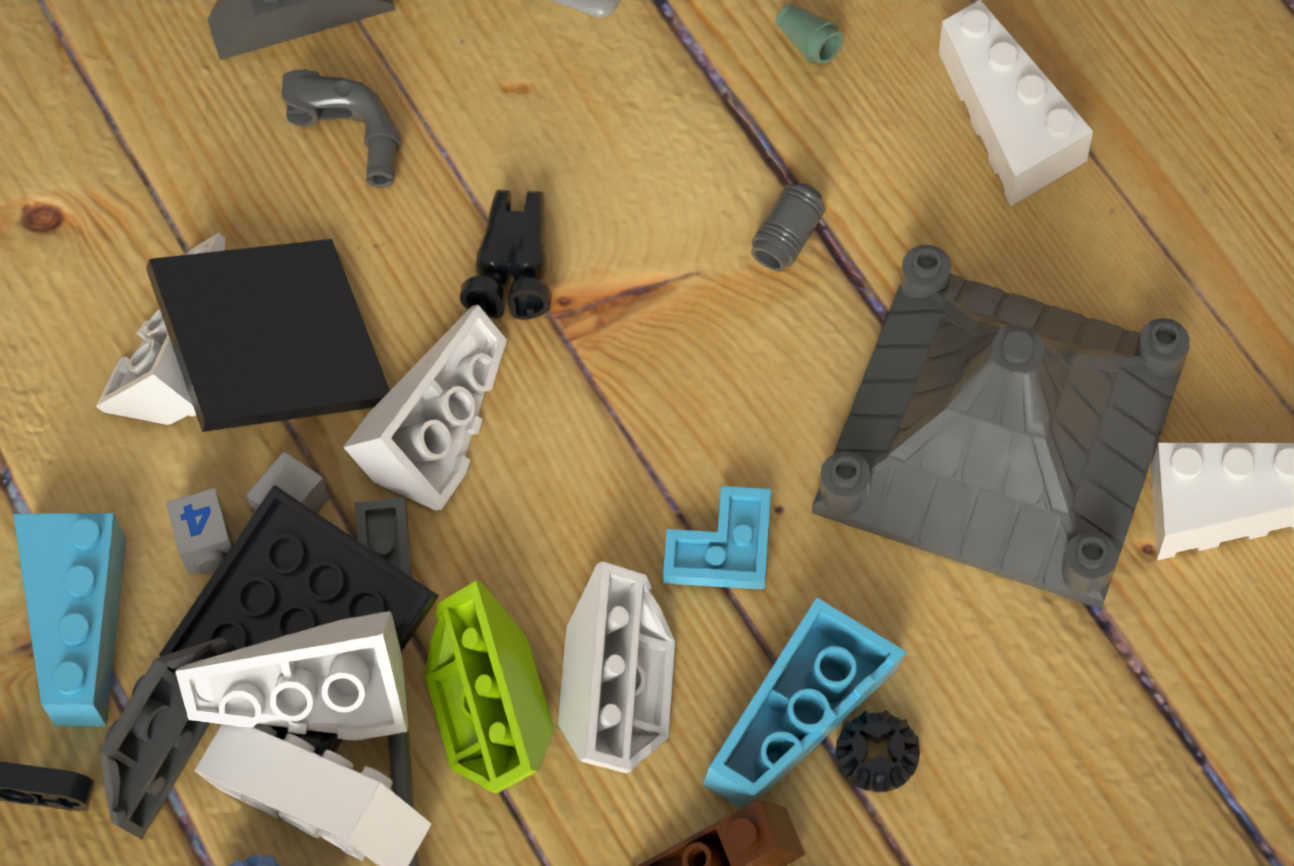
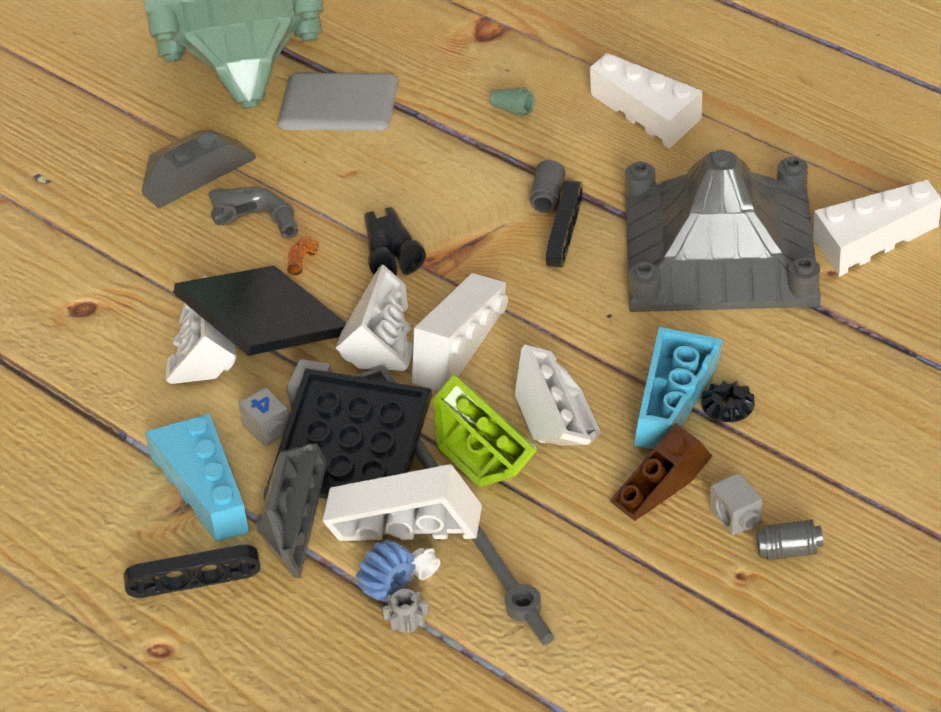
camera: 20 degrees left, 20 degrees down
(320, 679) = (380, 447): white wedge -> none
(374, 225) = (297, 252): none -> clear orange arm
(534, 470) = (455, 330): none -> white wedge
(727, 557) = (591, 338): medium azure plate -> none
(781, 312) = (564, 224): none -> black beam

